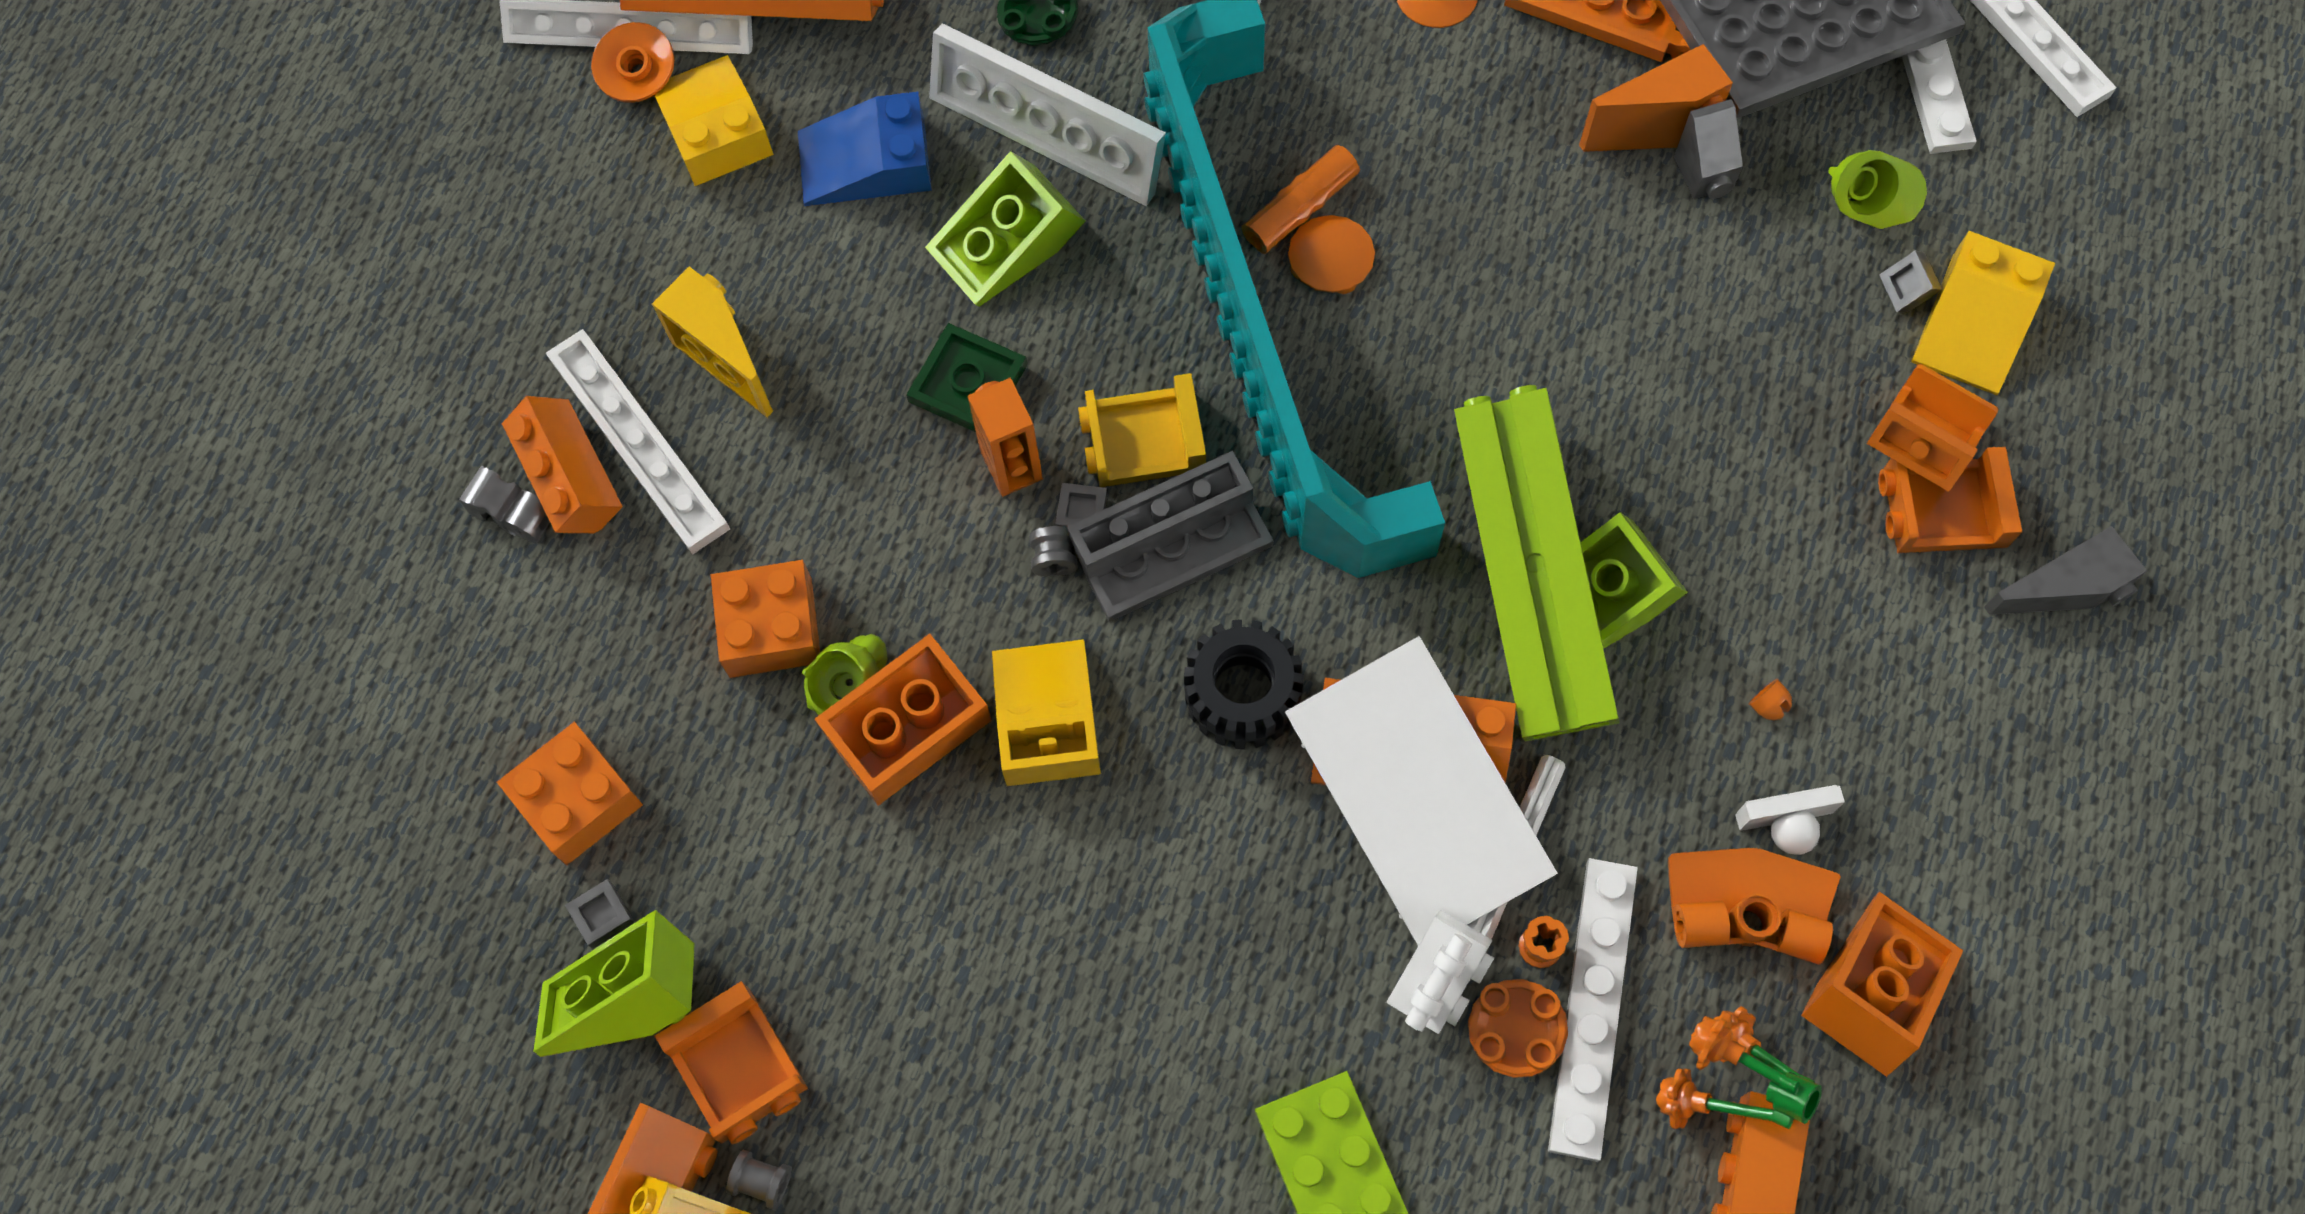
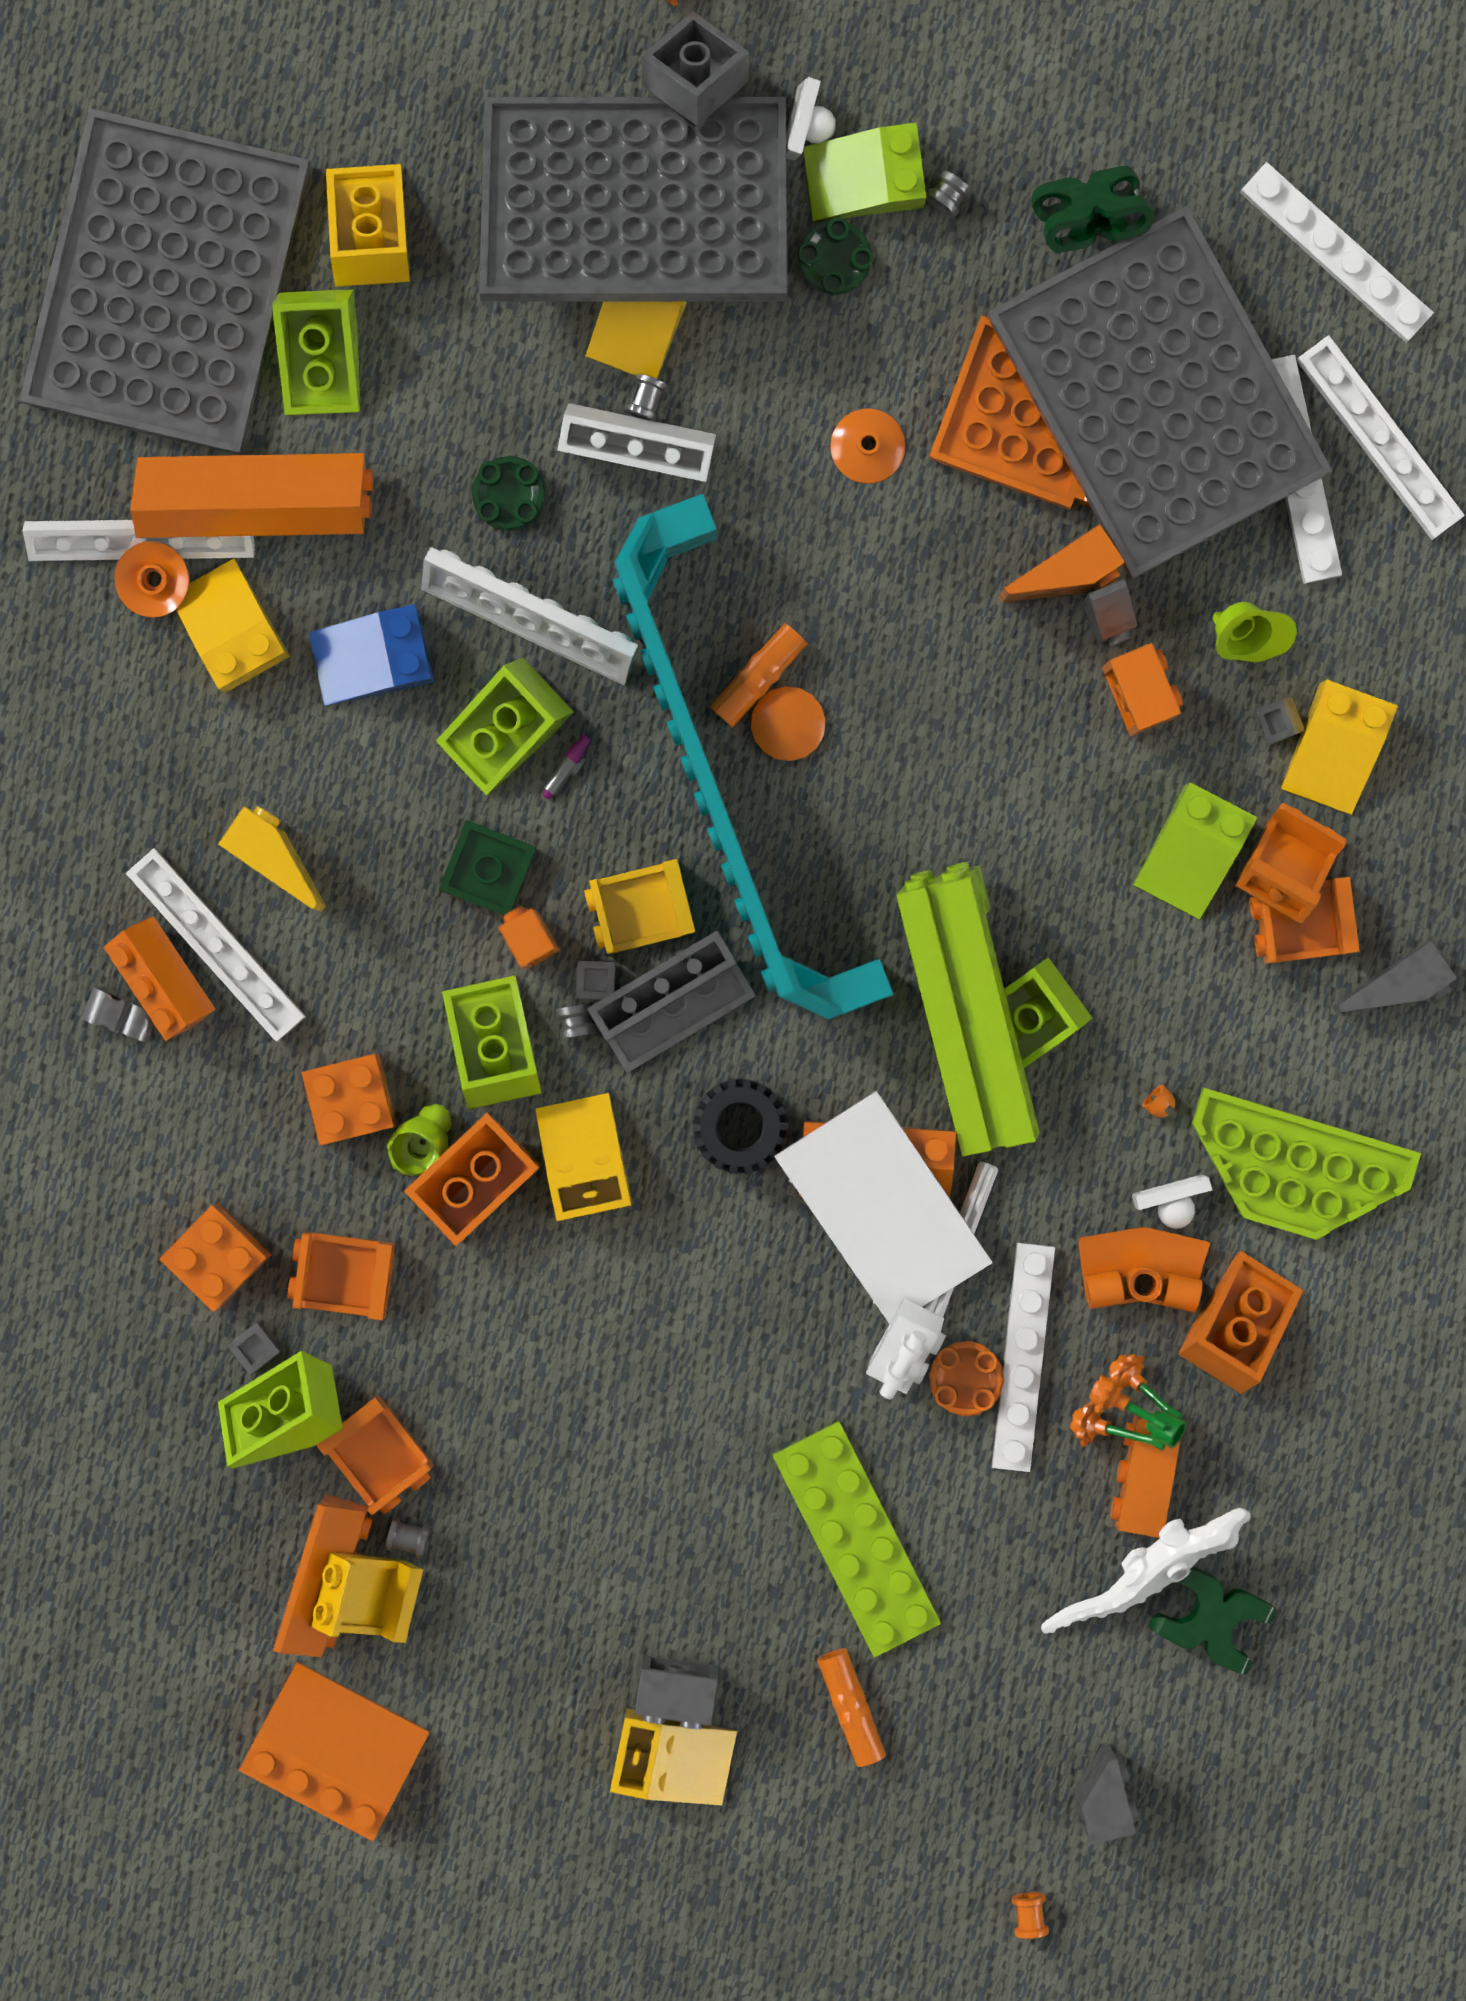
camera: 10 degrees left, 20 degrees up
(725, 831) = (342, 1274): none -> orange panel
(947, 571) = (491, 1042): none -> lime slope
(1074, 282) = (569, 766): none -> piece
(1548, 928) = (972, 1310): orange bush -> none
(1748, 229) = (1142, 689): none -> orange brick
(1812, 412) = (1194, 850): none -> lime slope
(1951, 794) = (1295, 1168): none -> lime plate

